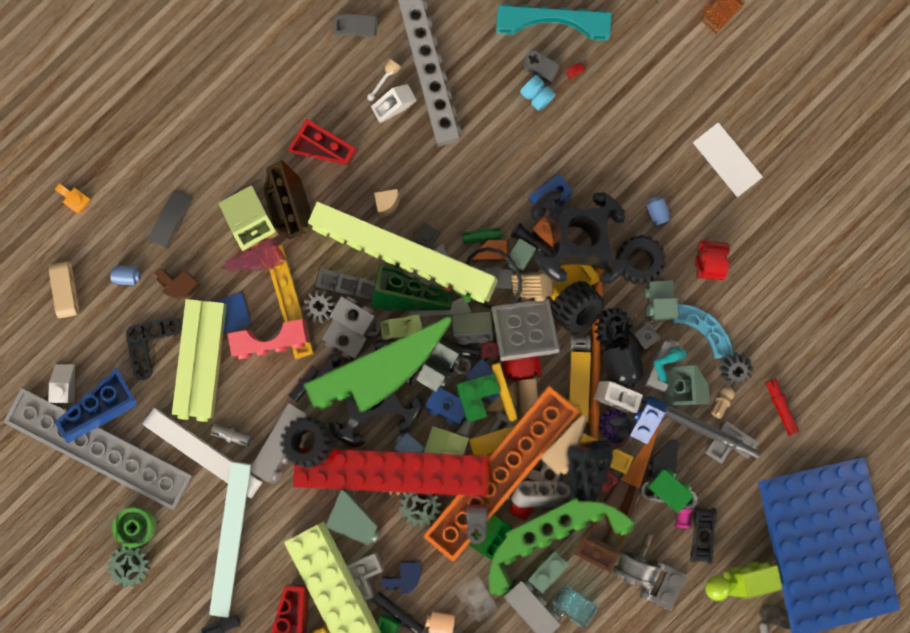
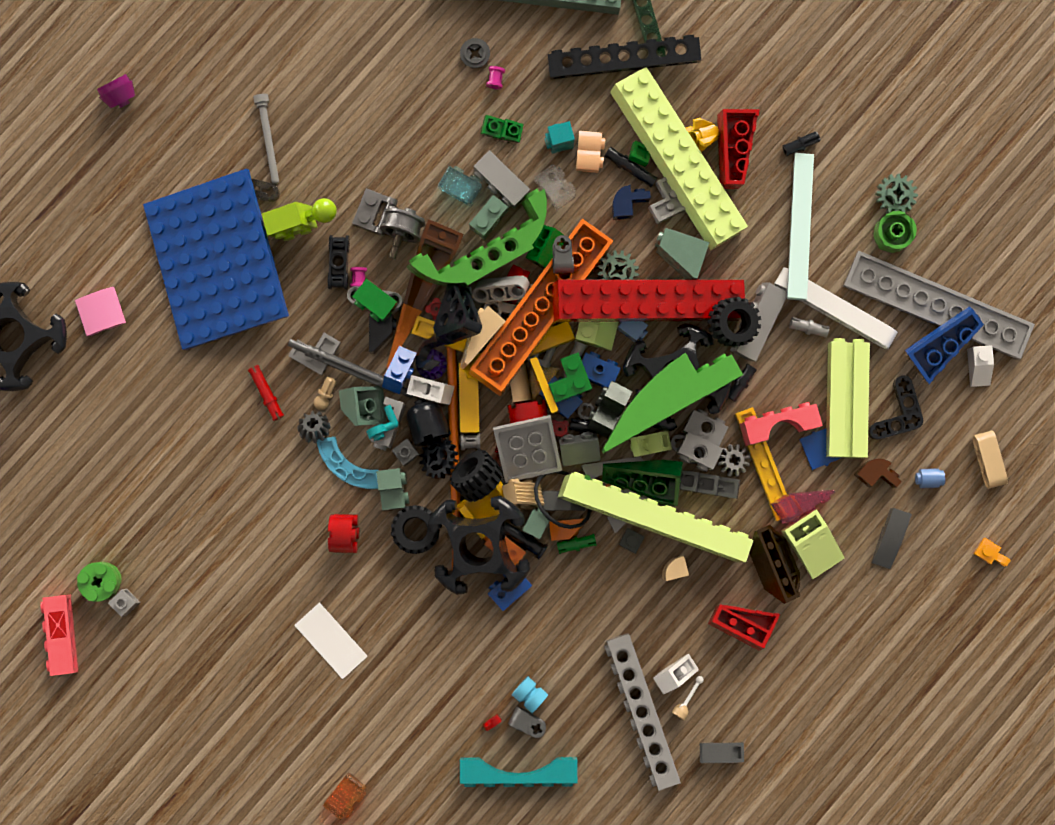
camera: 165 degrees right, 0 degrees up
(658, 210) = (399, 581): medium blue brick -> none

